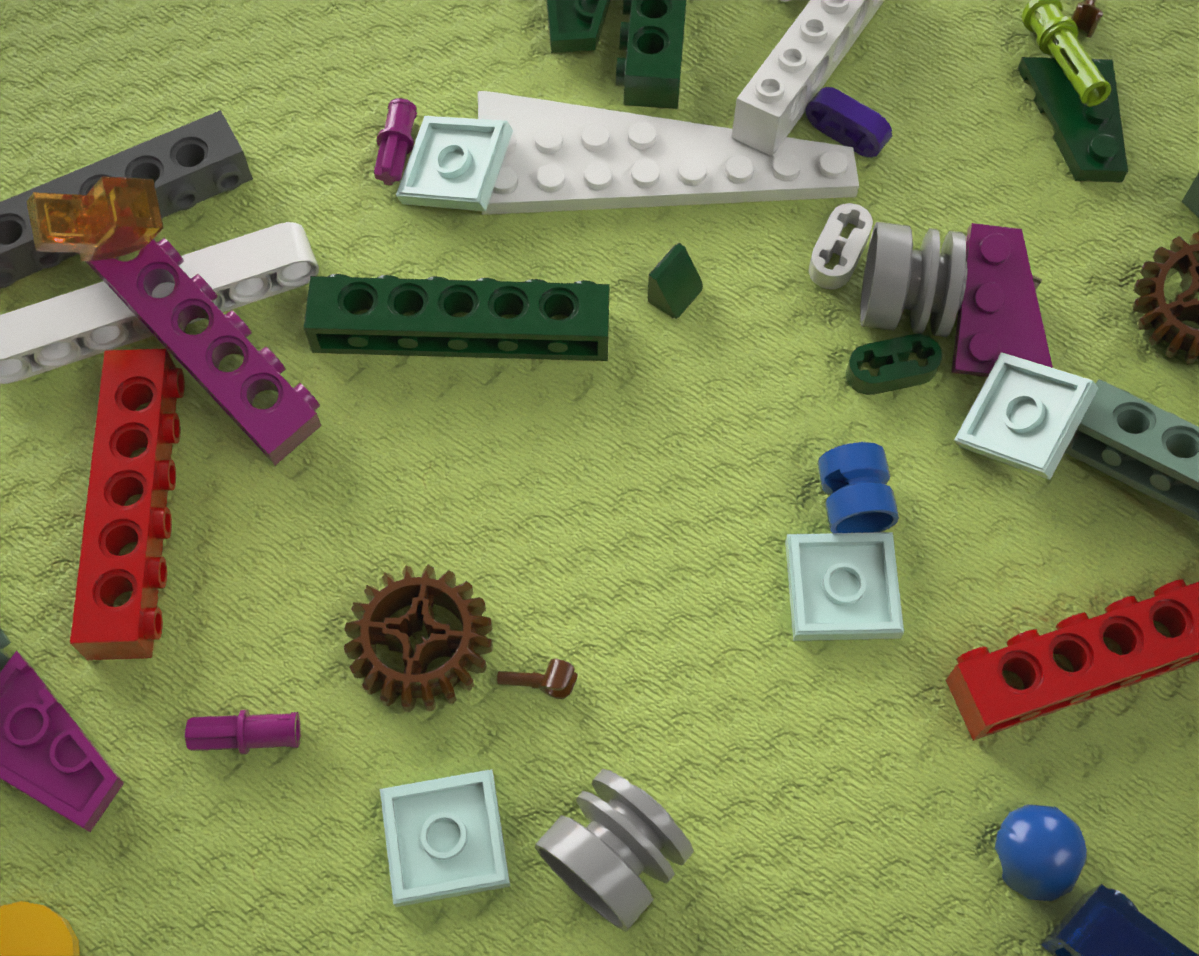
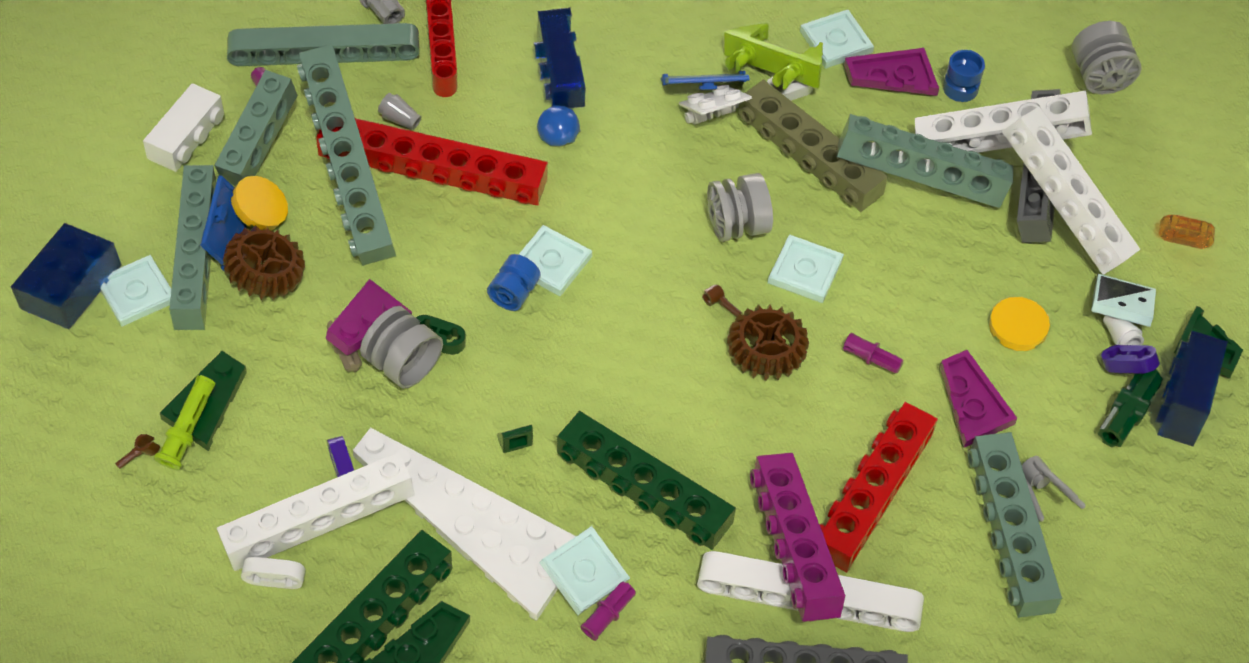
camera: 150 degrees left, 10 degrees down
(104, 224) = (818, 568): clear orange brick -> none
(848, 249) = (408, 406): white beam -> none
(1026, 415) = (407, 262): light aqua tile -> none

